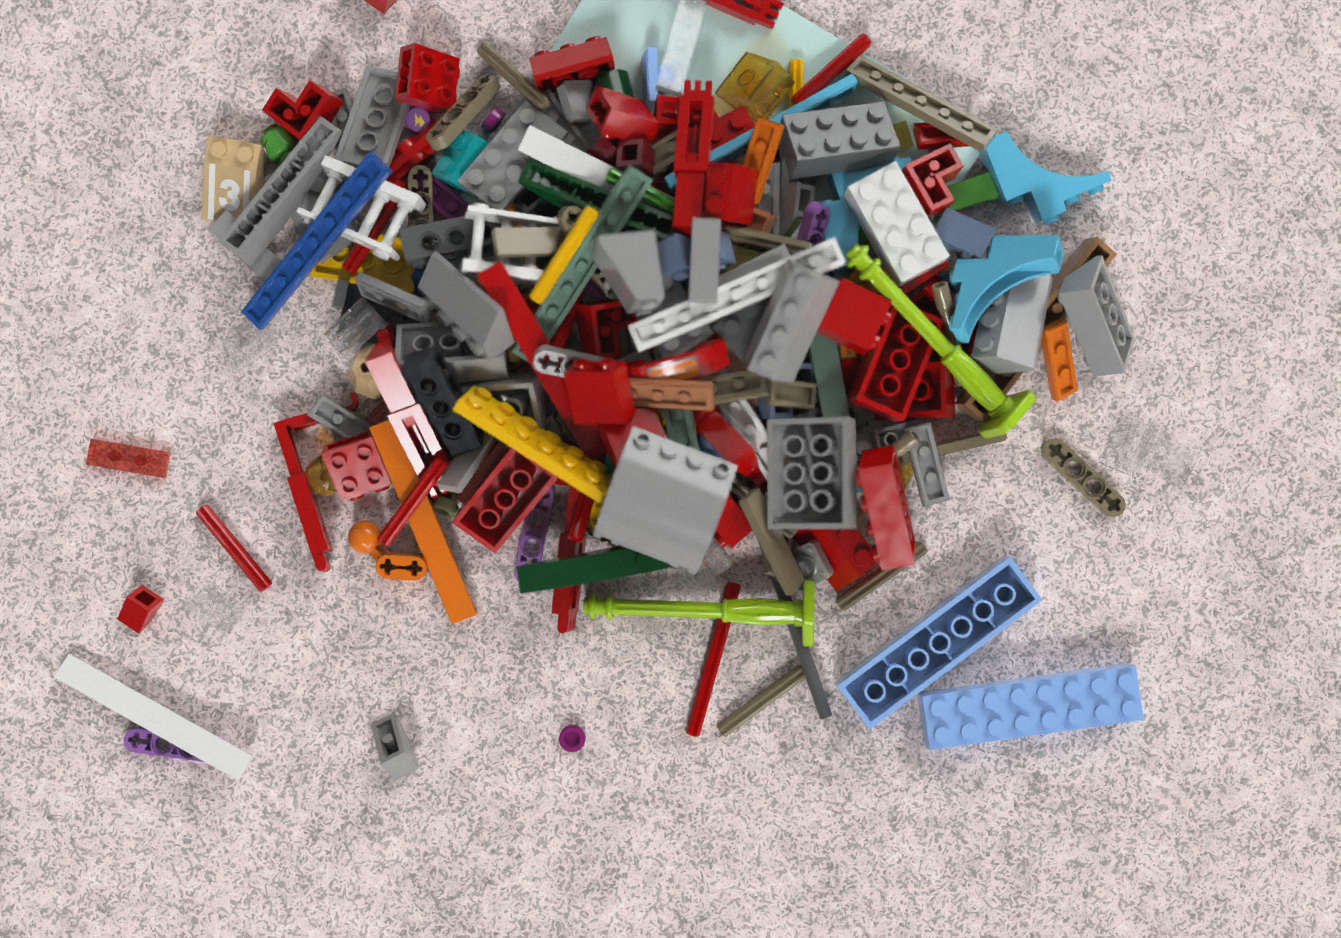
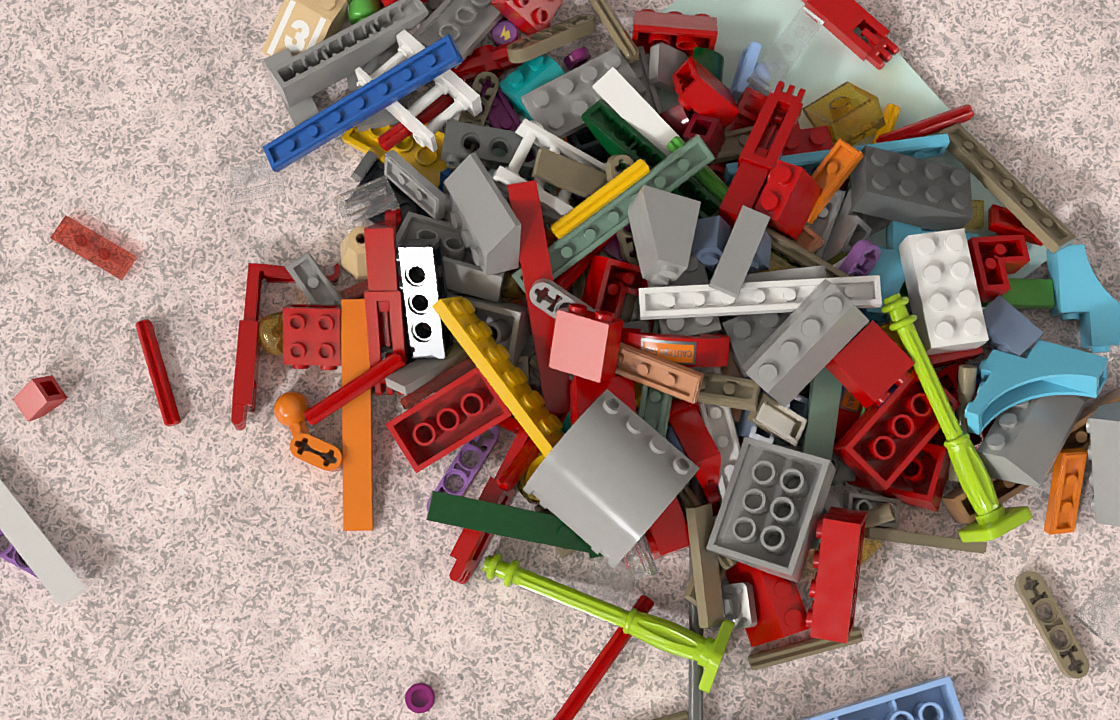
camera: 20 degrees right, 10 degrees down
(394, 747) = (233, 636): light grey slope -> none
(446, 506) = (385, 407): olive tile -> none
(927, 466) = (893, 550): light grey tile -> none

